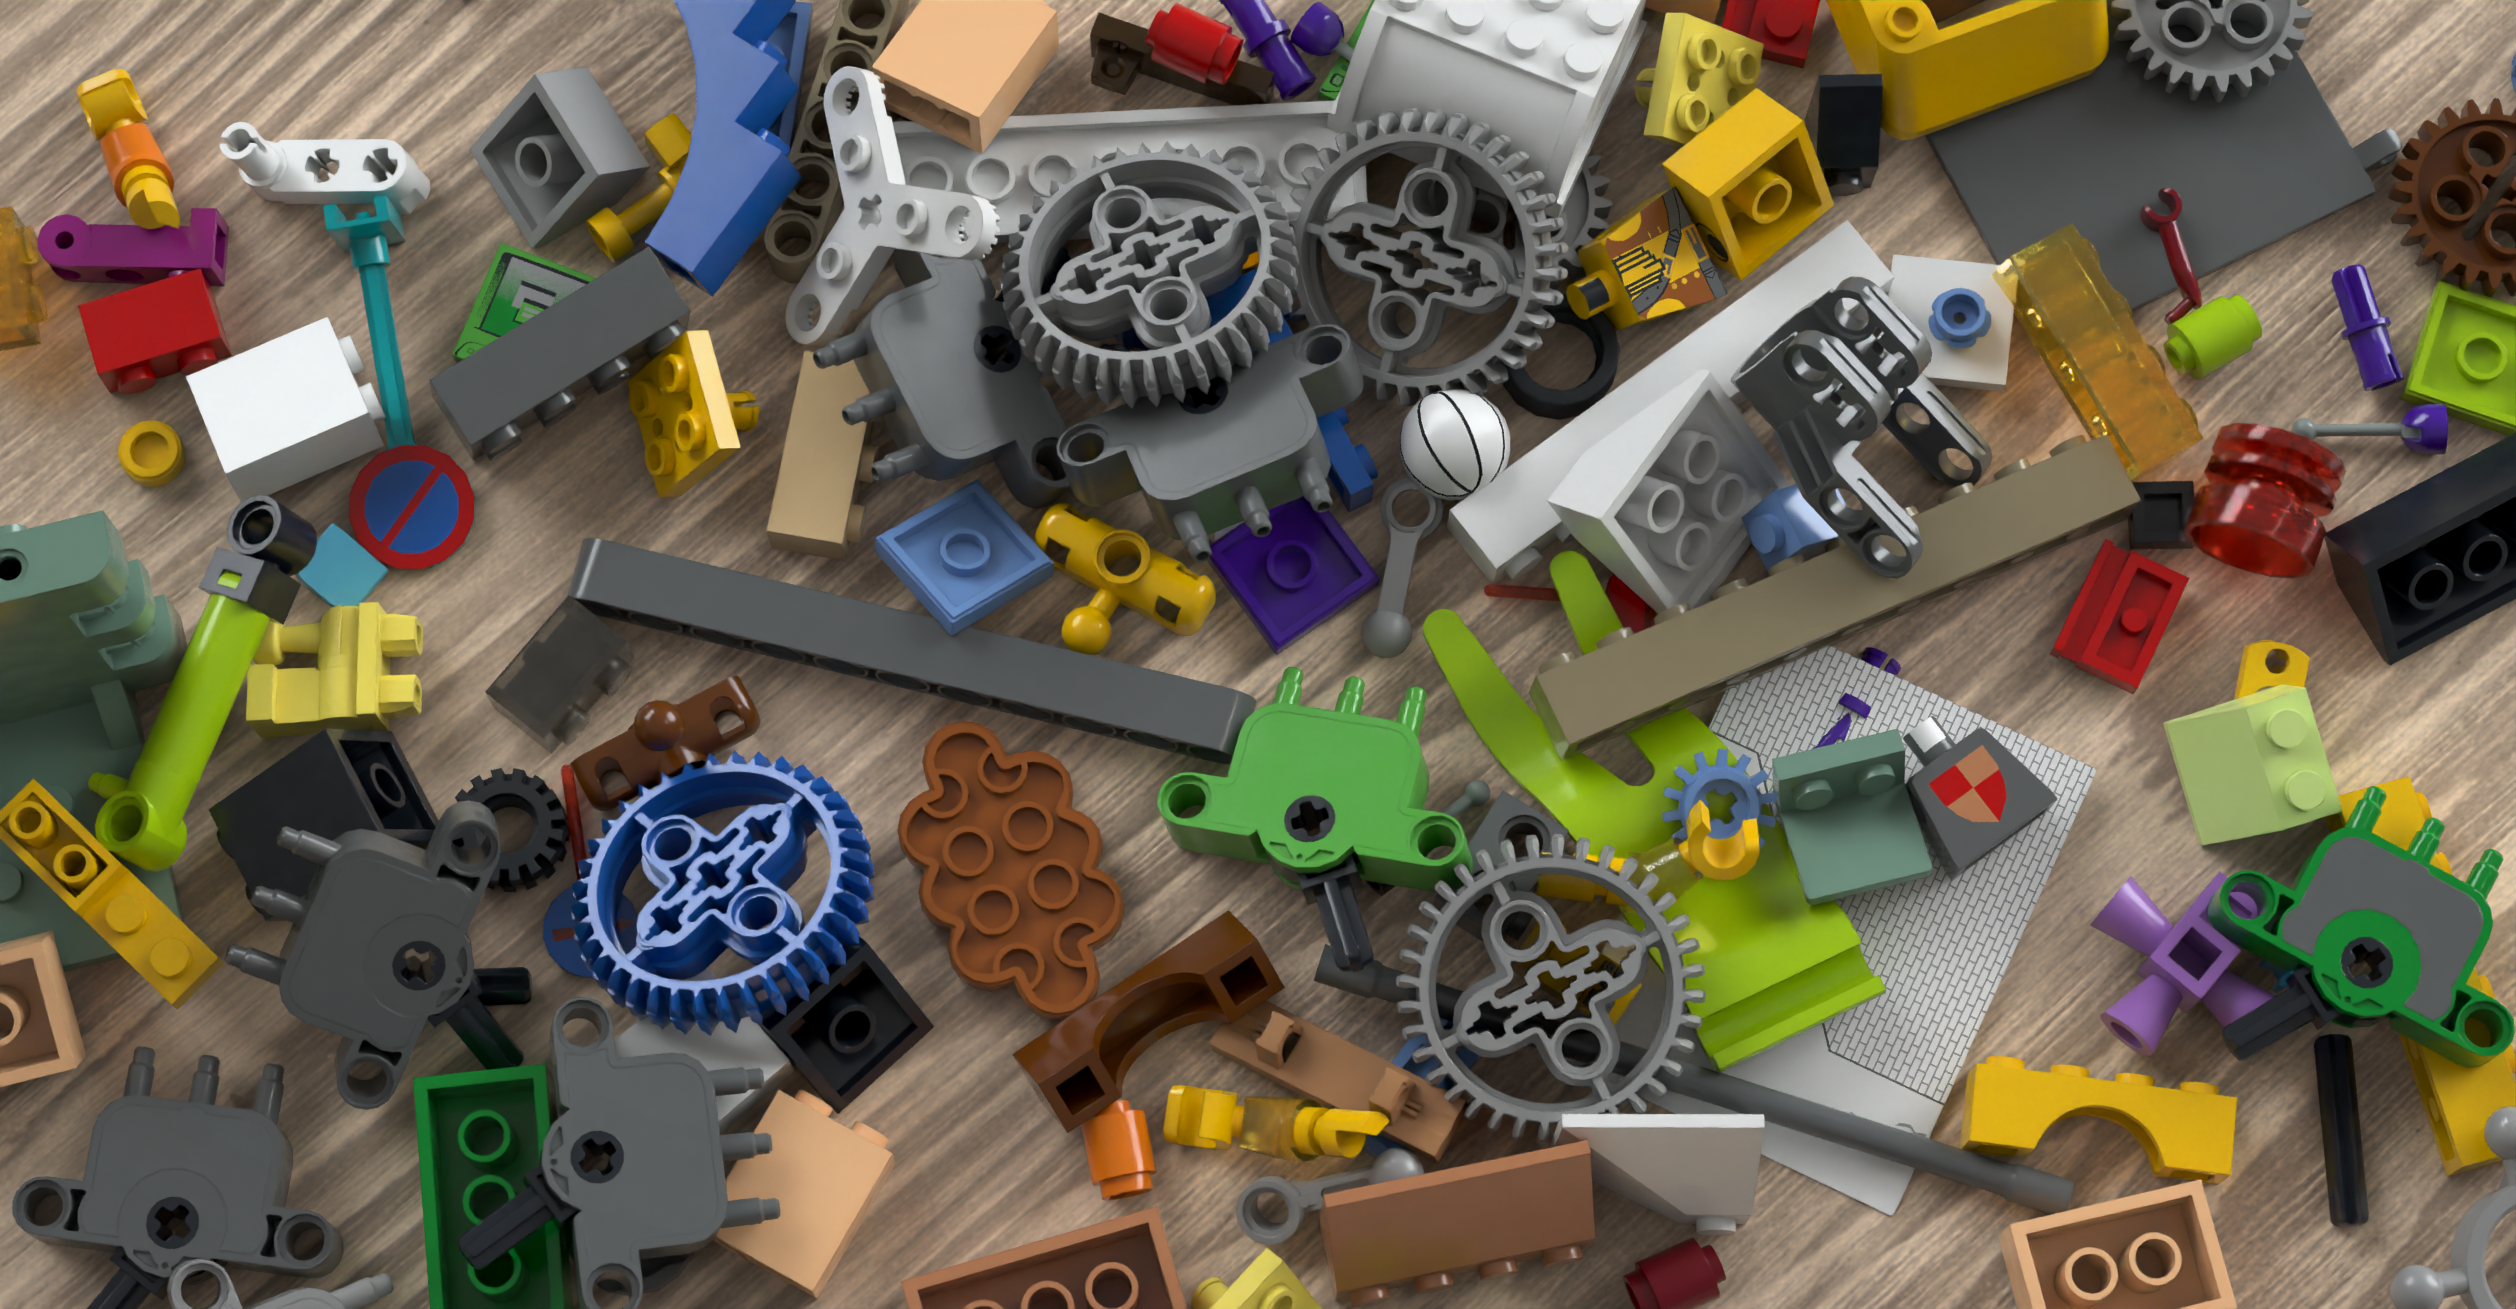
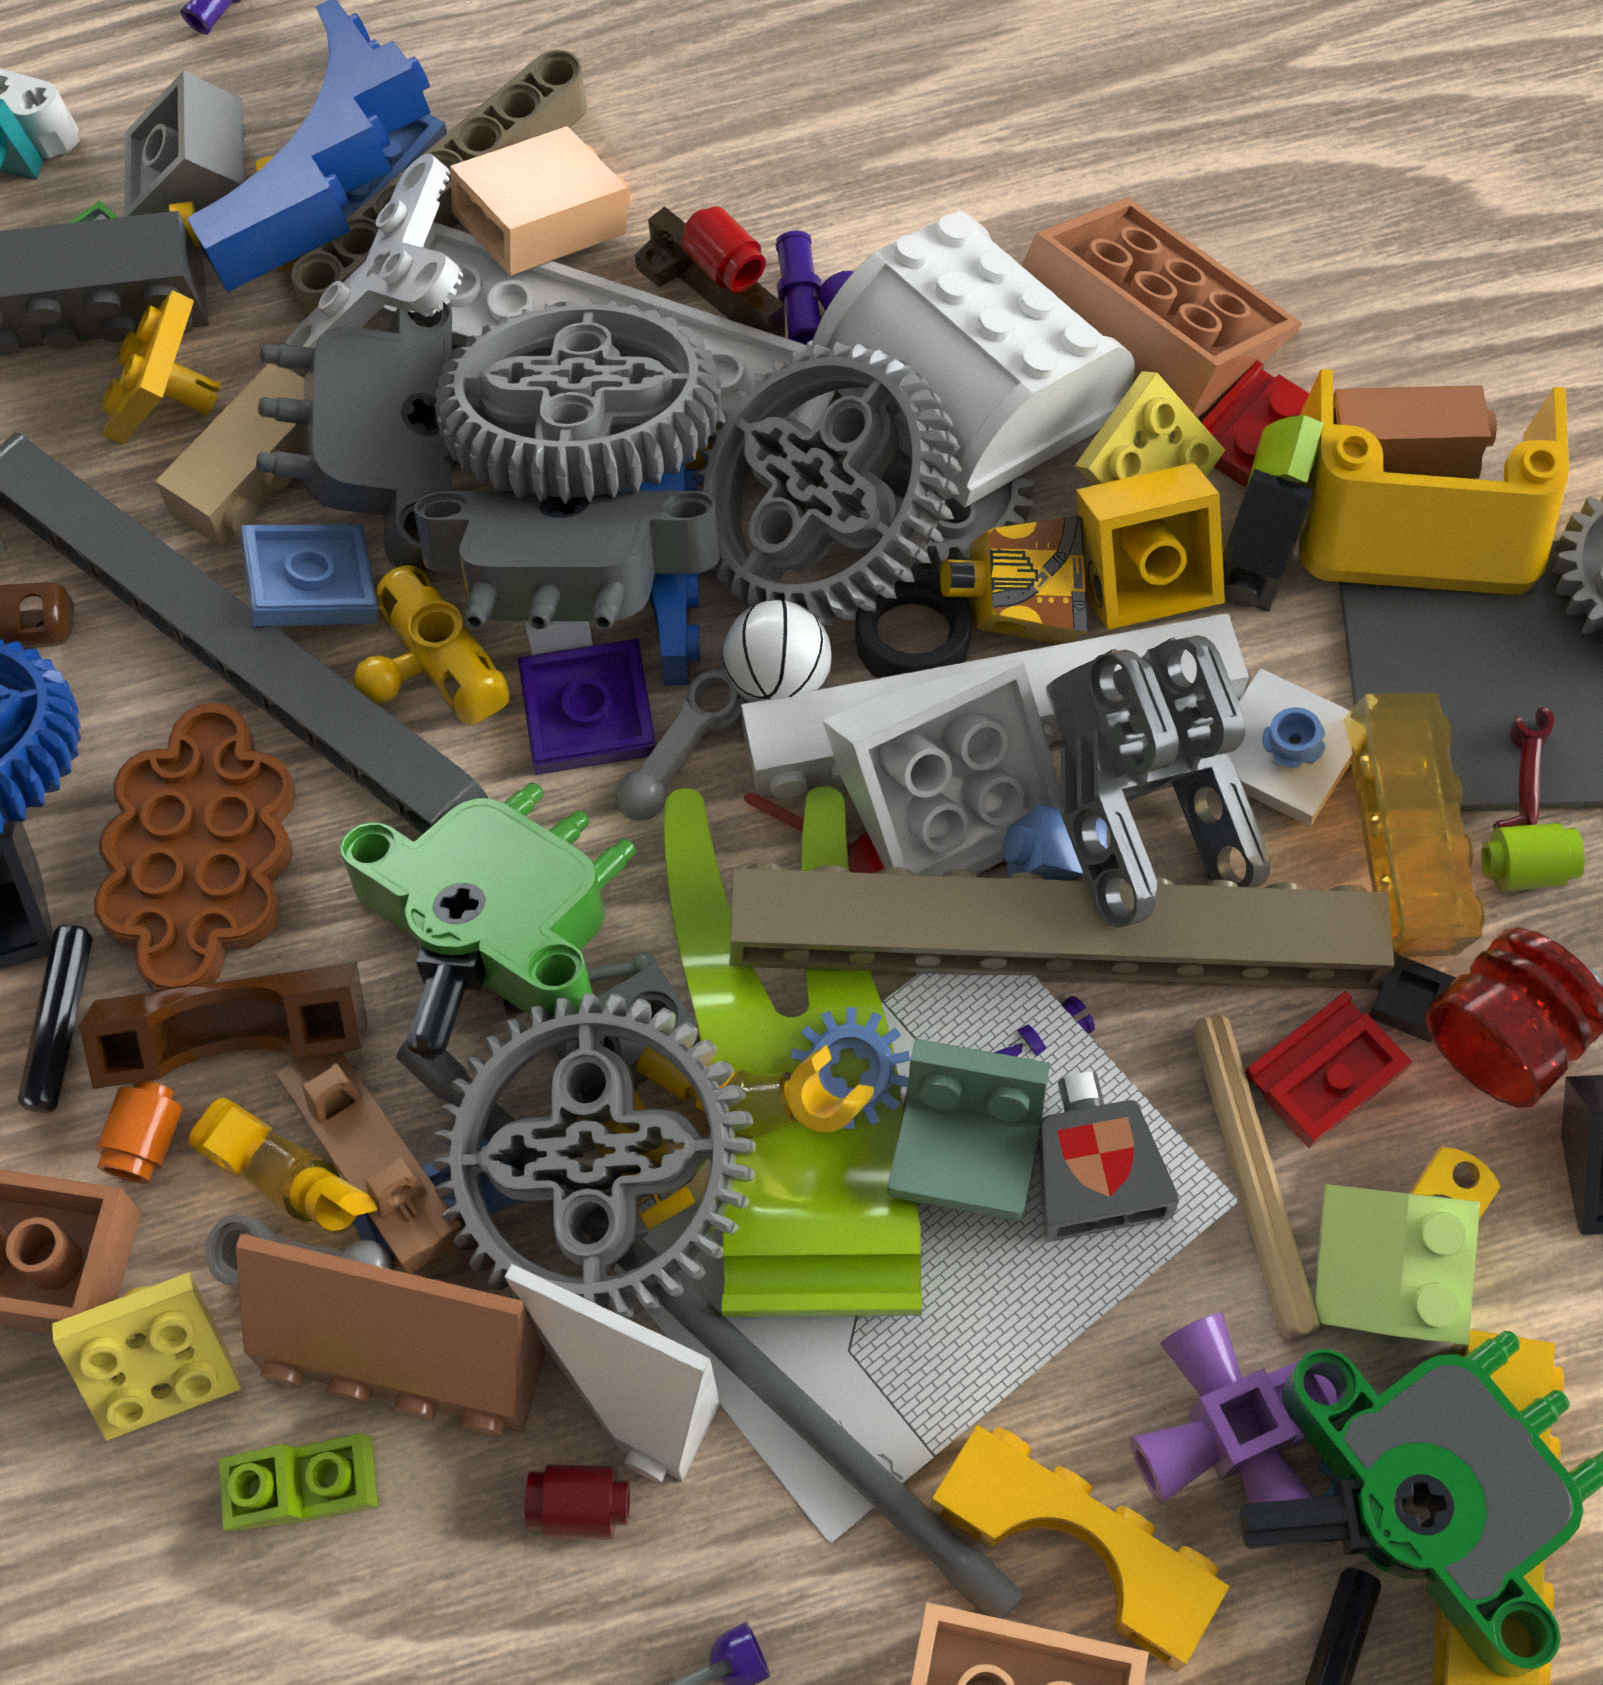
camera: 30 degrees right, 10 degrees down
(975, 1085) = (55, 1019): none -> black axle
(1832, 42) = (1289, 448): none -> lime slope
(2098, 739) = (1255, 1178): none -> tan axle

